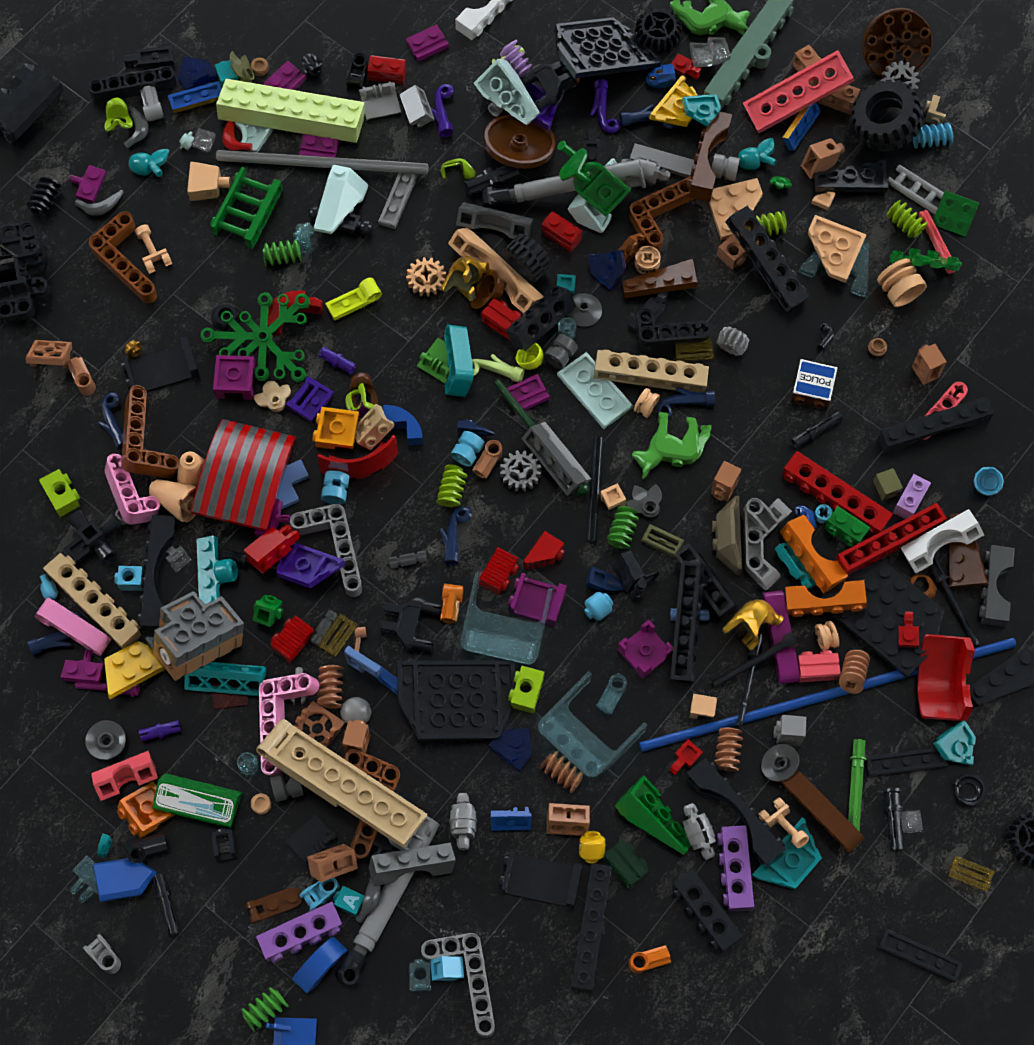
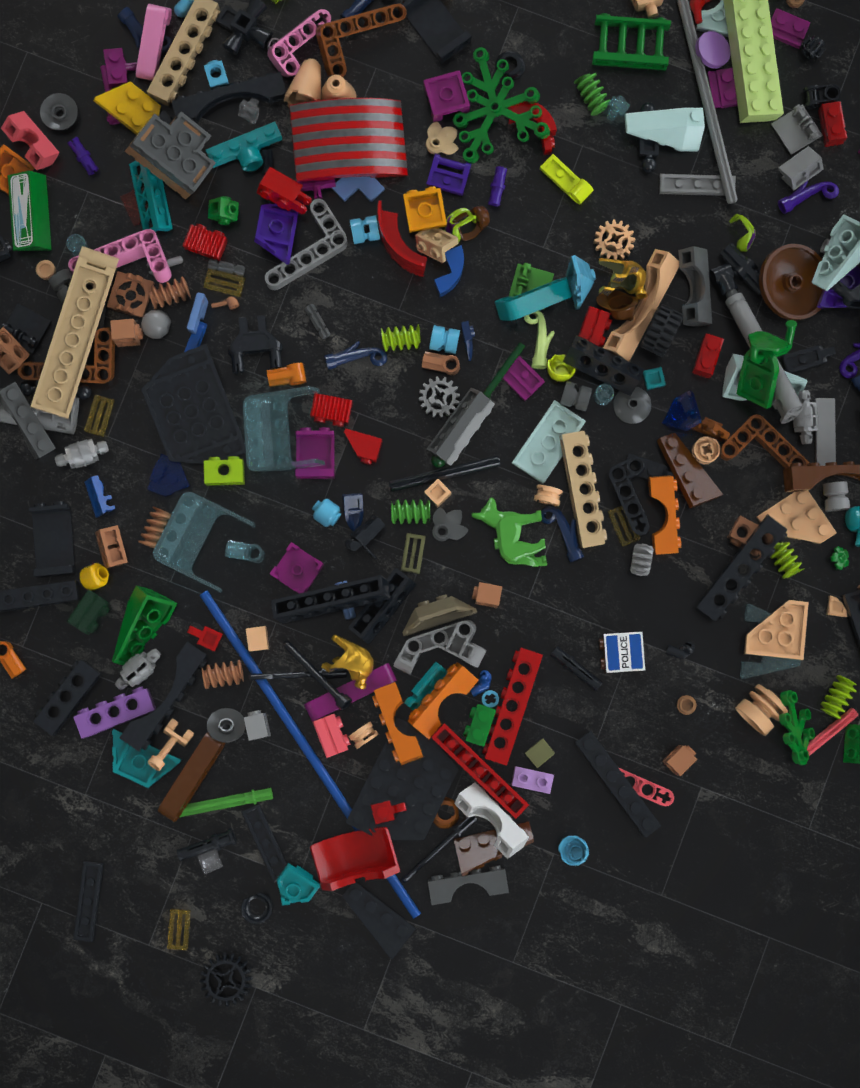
camera: 70 degrees right, 15 degrees up
(281, 143) = (713, 49): none -> medium lavender tile
(414, 785) = (97, 398): none -> clear yellow tile
(455, 312) = (580, 279): none -> medium azure wedge
(675, 302) = (666, 539): none -> orange arch
(854, 671) = (334, 769): nougat piece -> none

